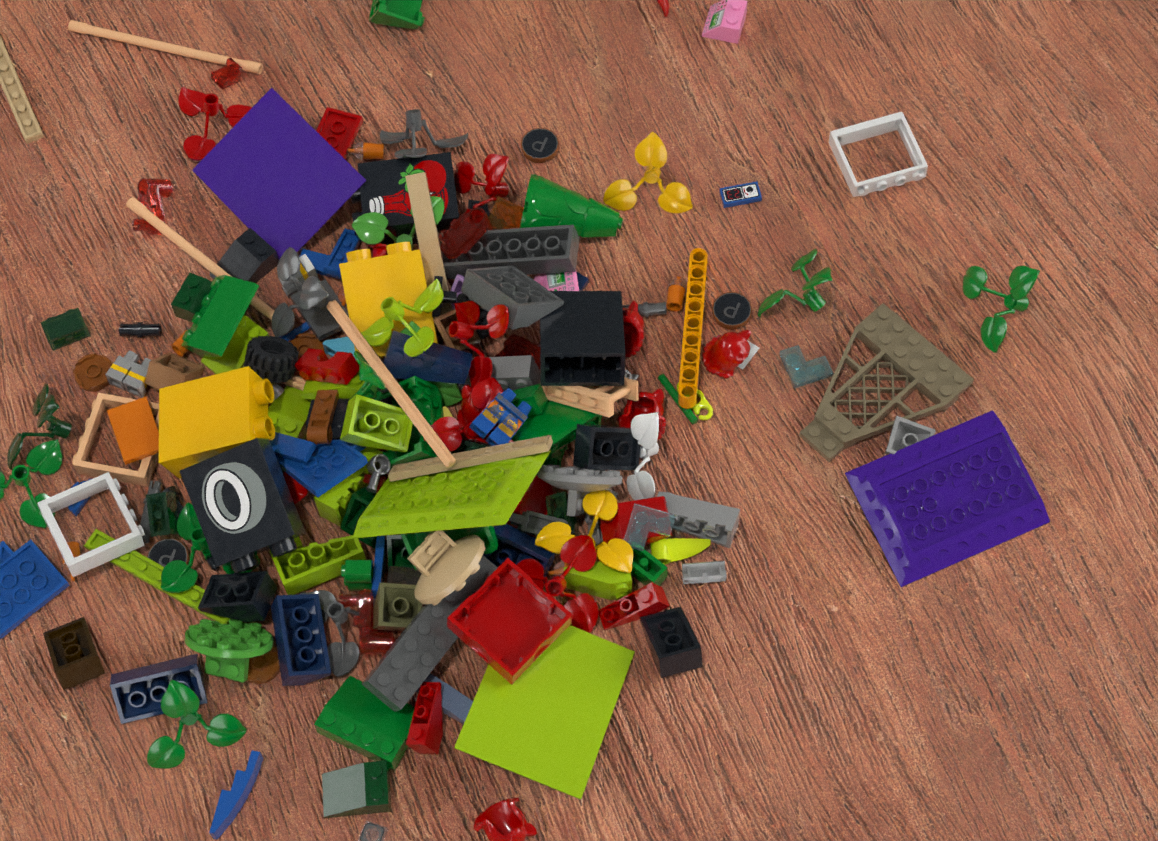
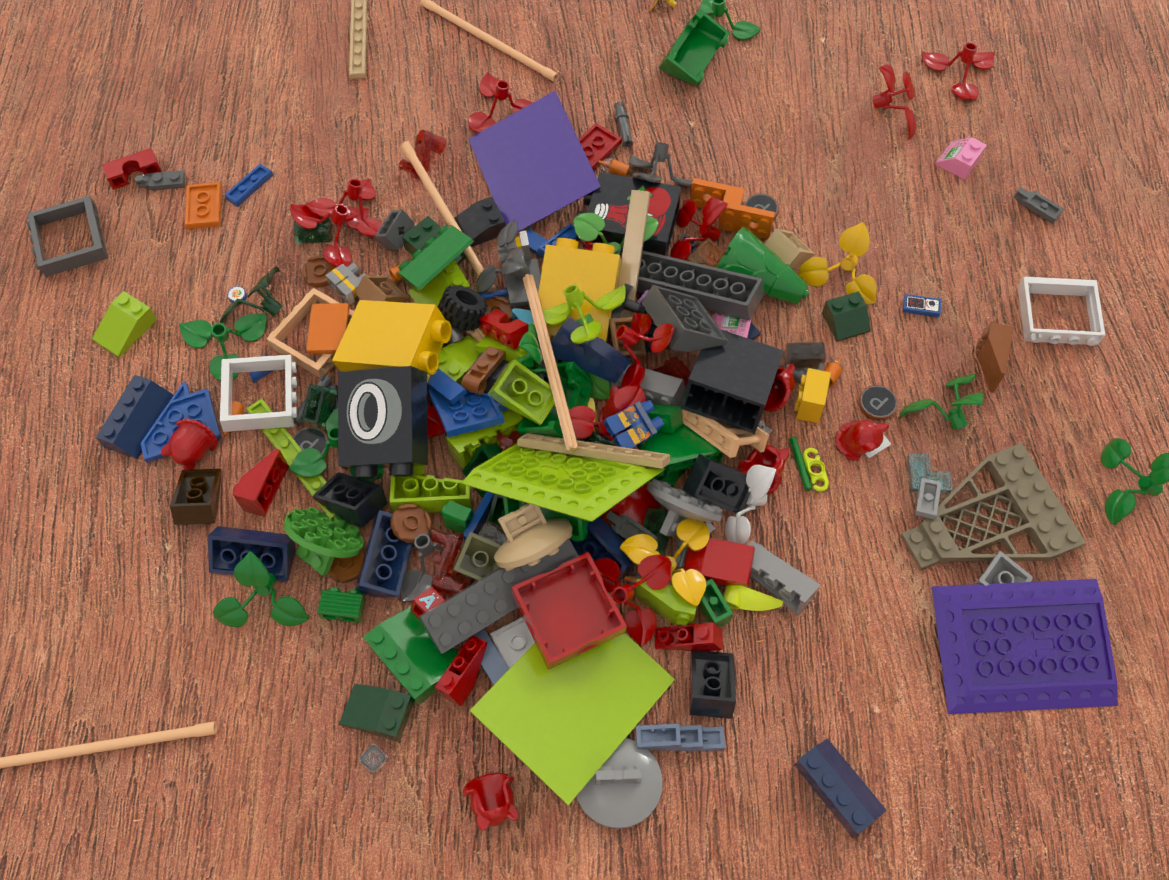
camera: 20 degrees right, 0 degrees up
(12, 427) = (237, 292): none -> tile
(42, 601) = (189, 443): none -> red hair
(99, 269) = (358, 191): none -> red plant
(102, 300) = (341, 214): none -> red plant
(138, 616) = (261, 484): none -> red slope
(140, 329) = (371, 249): black pin -> none
(157, 299) = (393, 228): none -> dark grey brick
(227, 75) = (527, 75): clear red bracket -> none
(232, 801) = (266, 679): blue slope -> none
(276, 704) = (341, 605): none -> green brick
(312, 597) = (410, 522): none -> dark orange tile
(353, 93) = (622, 120): none -> dark grey pin
(361, 668) = (426, 601): none -> red brick
(382, 467) = (516, 431): flat silver bar -> none
(464, 232) = (666, 256): clear red piece -> none
(465, 672) = (512, 641): none -> white tile
(520, 163) = (735, 214): none -> orange bracket
(584, 179) = (789, 248): none -> tan slope
(625, 768) = (623, 788): none -> light grey bracket
(643, 287) = (805, 355): none -> clear smoke brick
(644, 520) = (731, 563): clear light blue plate -> none
(661, 702) = (680, 738): none -> sand blue slope
(664, 326) = (812, 395): none -> yellow piece
(669, 232) = (847, 316): none -> dark green slope
(697, 268) = (848, 383): light orange beam -> none
(704, 572) = (766, 630): light grey hinge -> none
(812, 389) = (928, 498): none -> light grey slope
(821, 47) = (1039, 204): none -> dark grey hinge
(824, 691) = (840, 787): none -> dark blue slope
(827, 220) = (994, 352): none -> dark orange slope

